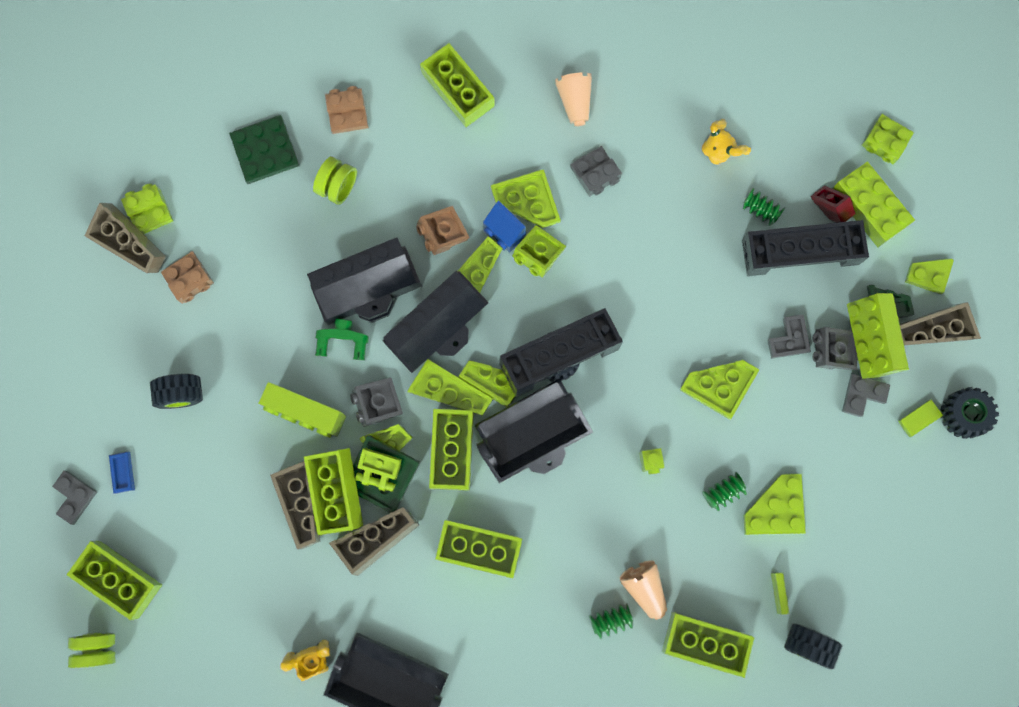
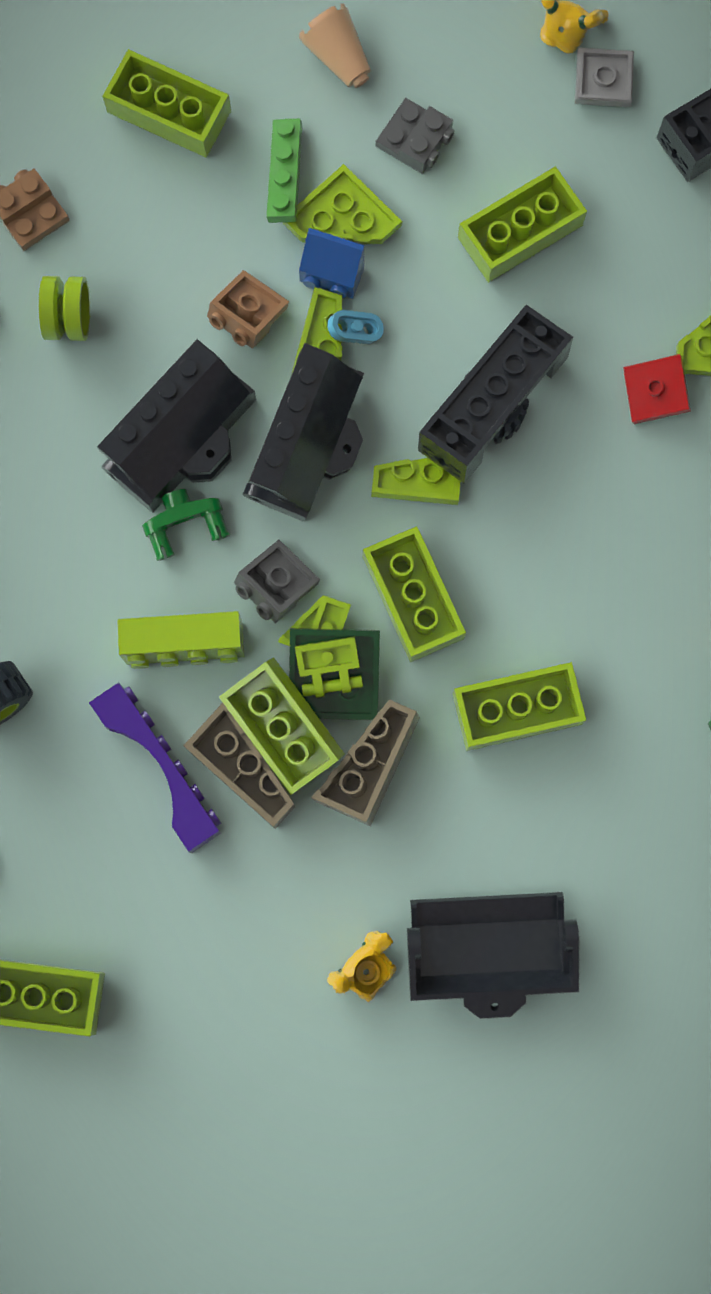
camera: 30 degrees left, 0 degrees up
(92, 652) = (55, 1105): lime wheel -> none
(256, 519) = (189, 819): none -> dark purple arch
(442, 386) = (364, 518): lime wing -> none
(499, 270) = (353, 324): none -> medium azure plate
(506, 157) = (284, 170): none -> bright green plate
(532, 432) = (513, 515): black piece -> none
(538, 251) = (393, 277): lime plate -> none
(631, 256) = (521, 224): none -> lime brick
(652, 461) = (687, 480): lime brick -> none
(662, 395) = (656, 389): none -> red plate
(728, 188) = (604, 77): none -> light grey plate
(762, 207) = (663, 79): green piece -> none

